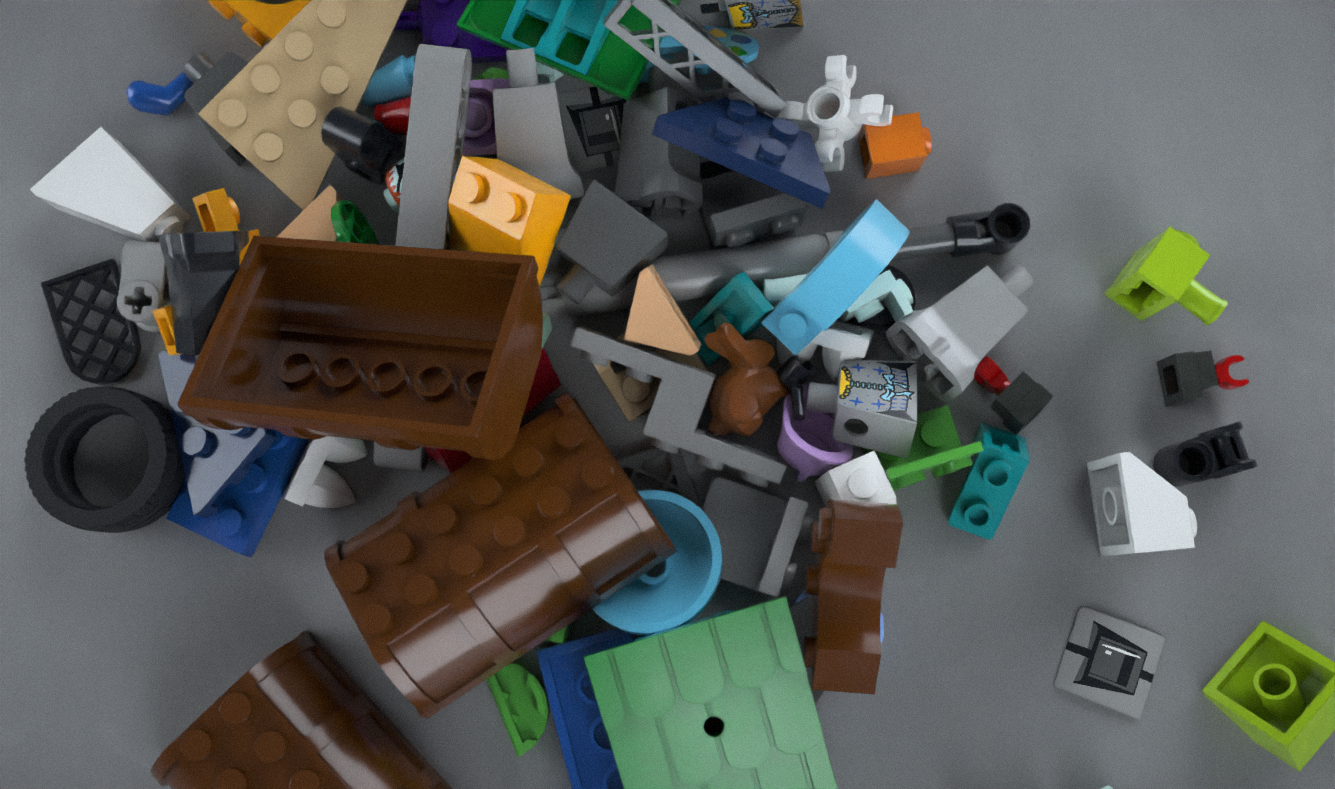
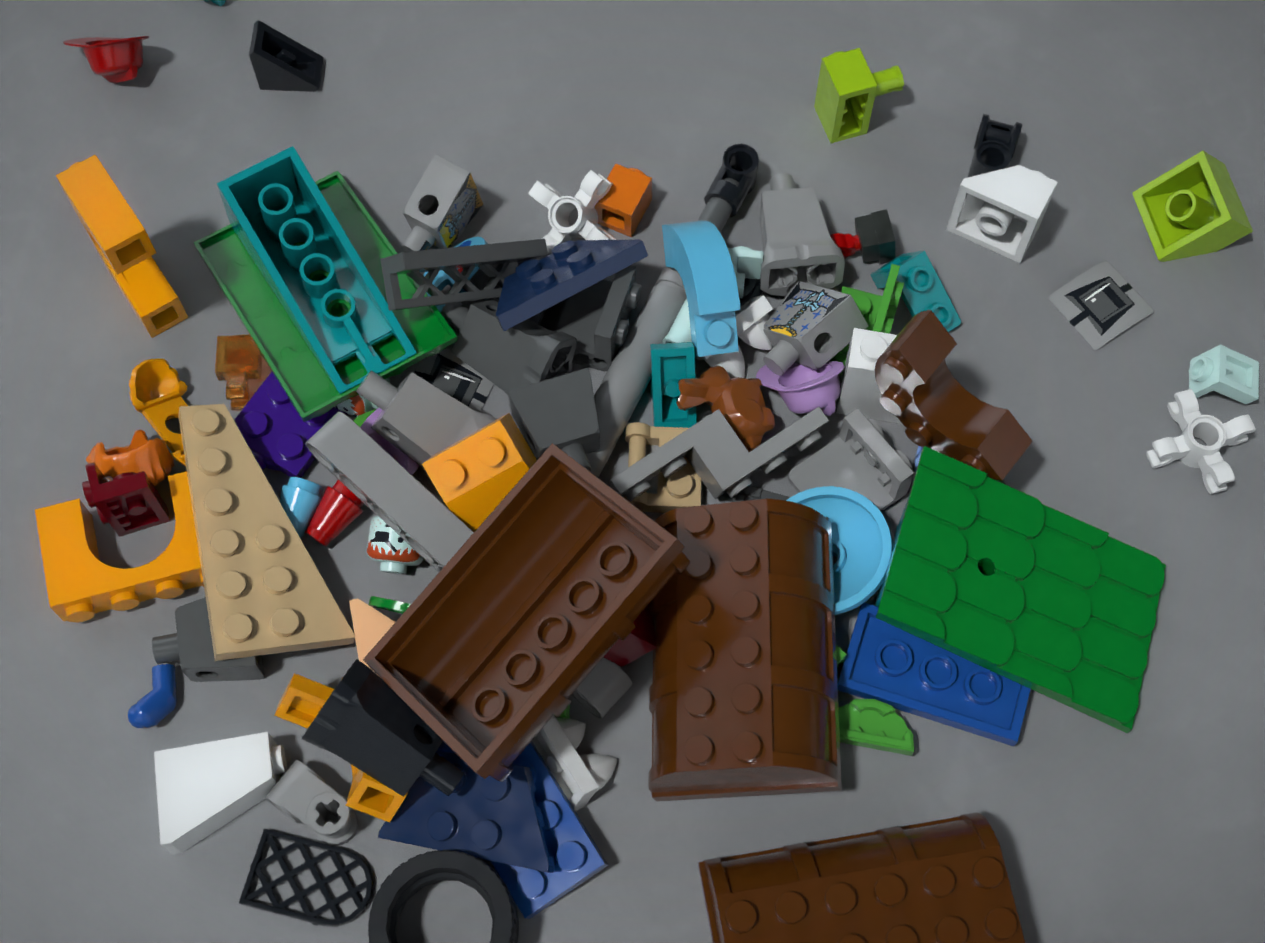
camera: 55 degrees left, 15 degrees down
(359, 143) = (334, 557): black piece -> none
(657, 317) = (639, 423): light nougat slope -> none
(793, 375) = (748, 366): black hand -> none
(1189, 373) = (928, 123): pearl dark grey piece -> none

